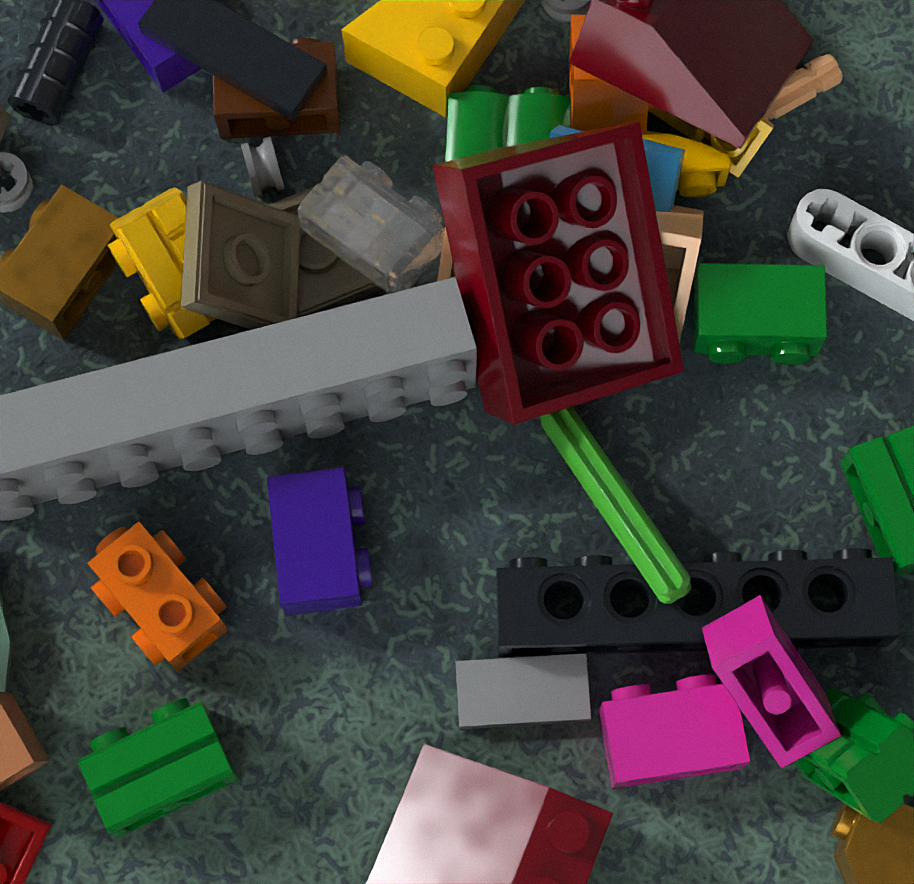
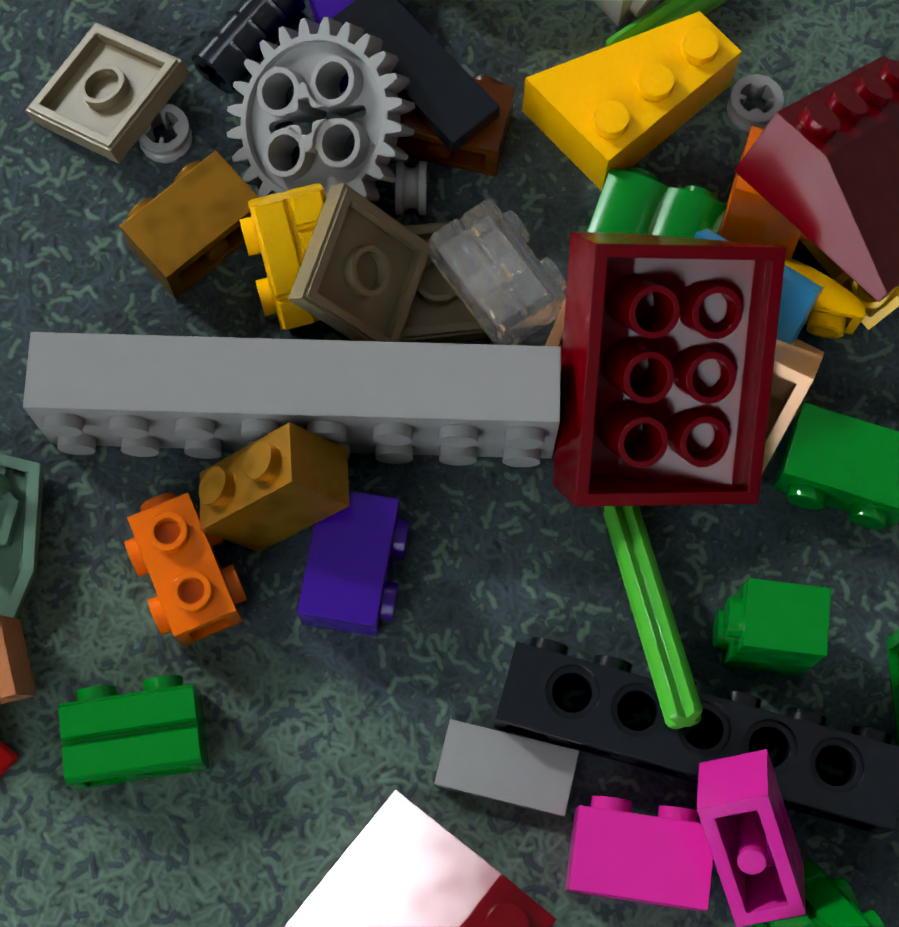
camera: 15 degrees right, 0 degrees up
(135, 74) = (314, 65): none -> light grey gear
(221, 492) = (274, 488): none -> pearl gold brick
(733, 482) = (773, 627): none -> green brick

